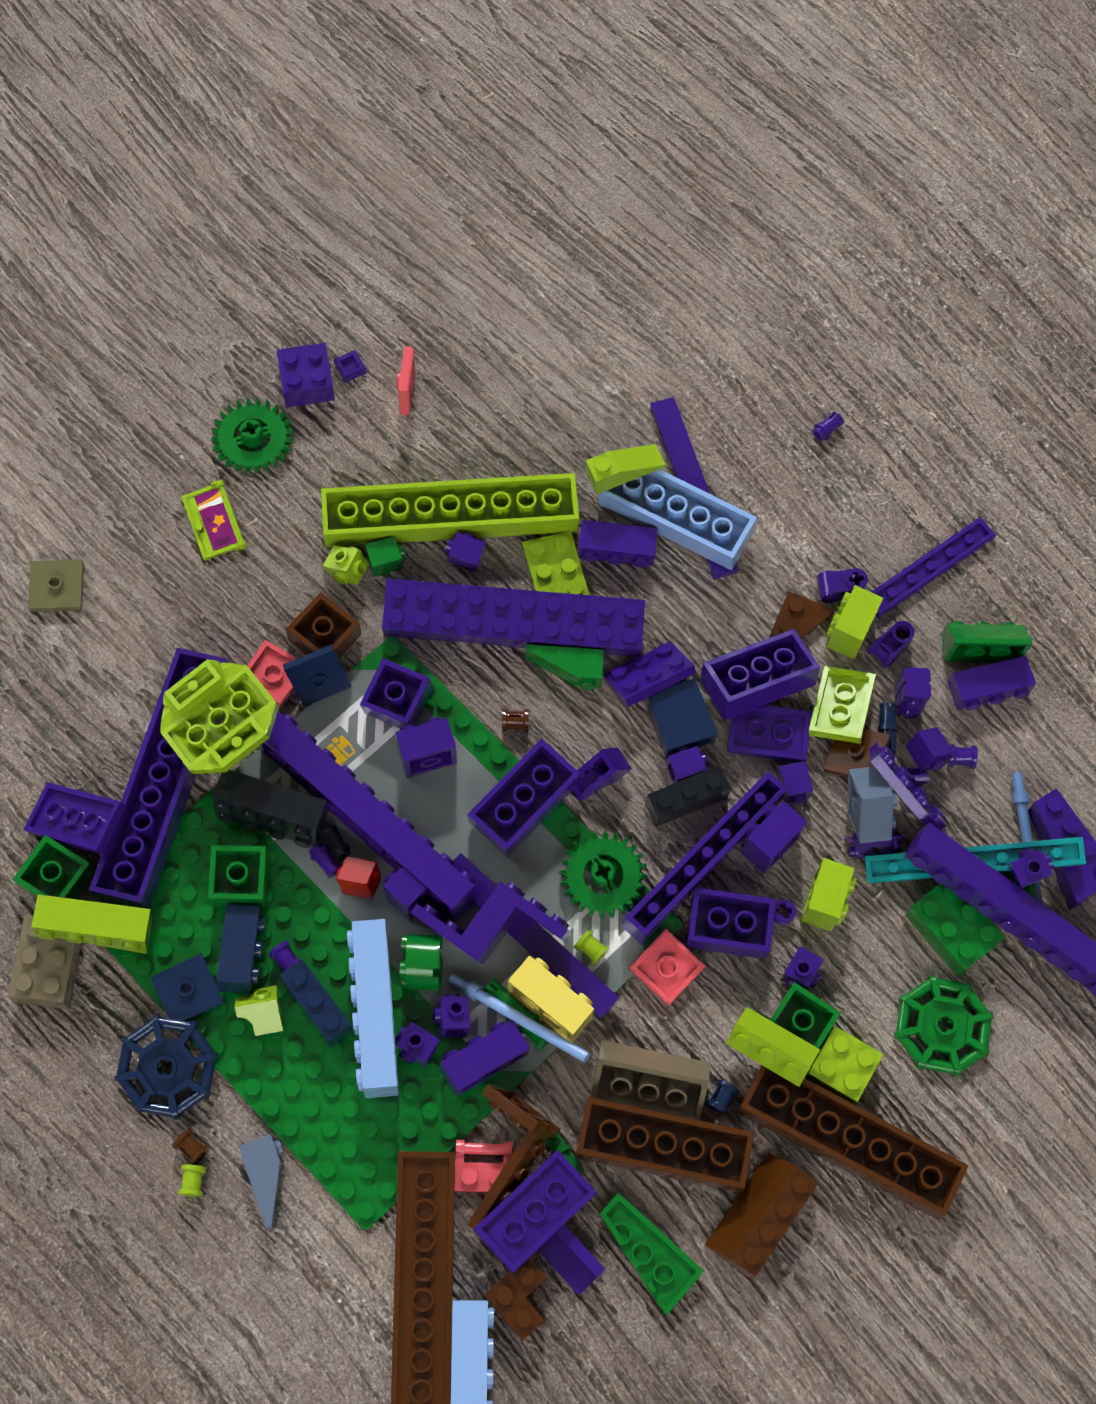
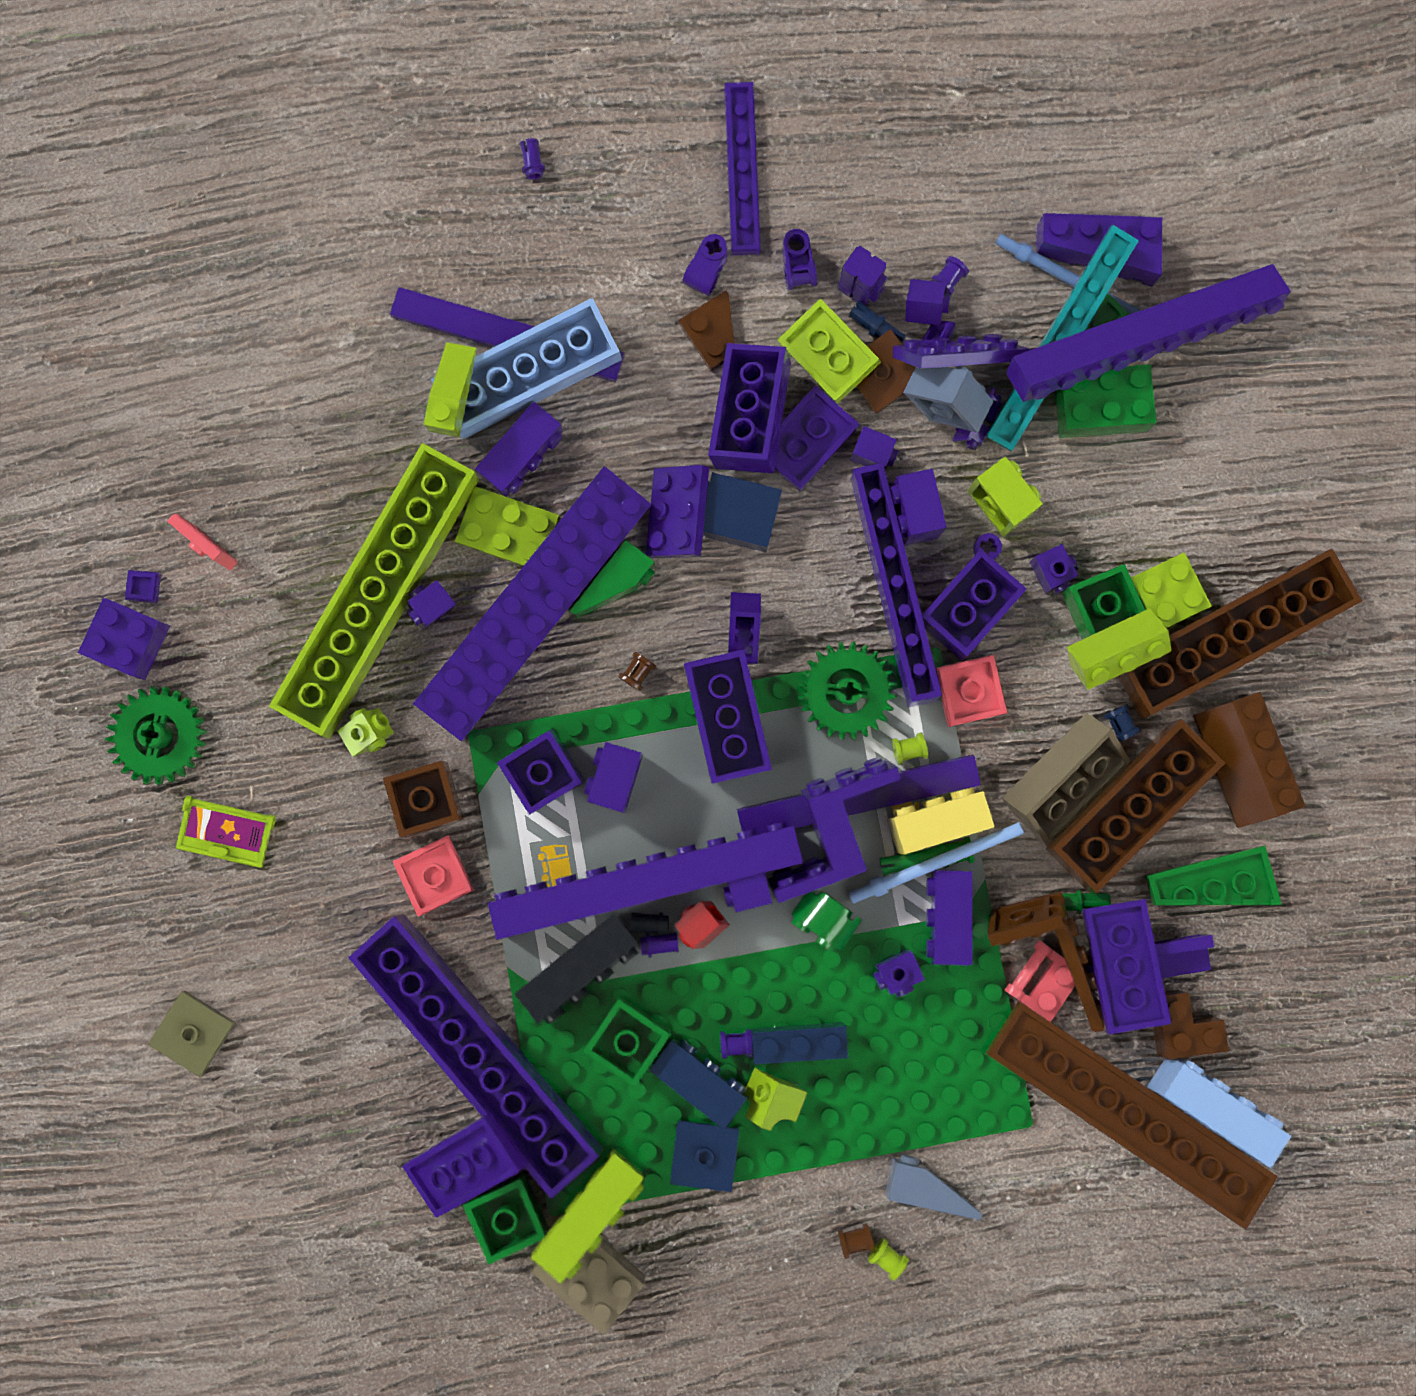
camera: 55 degrees left, 15 degrees up
(150, 1063) = (757, 1205): dark blue plate -> none
(204, 699) = (433, 980): lime piece -> none
(317, 675) = (468, 836): dark blue plate -> none
(375, 1009) = (844, 993): light blue brick -> none
(385, 556) = (381, 686): green brick -> none
(452, 1016) = (891, 921): dark purple brick -> none
(686, 763) = (790, 538): dark purple brick -> none
(687, 796) = (822, 559): black brick -> none
(852, 621) = (756, 281): lime brick -> none
(931, 1034) = (1167, 479): green plate -> none
(984, 642) = (855, 171): green slope -> none
(991, 683) = (899, 196): dark purple brick -> none
(1031, 867) = (1111, 293): dark purple brick -> none

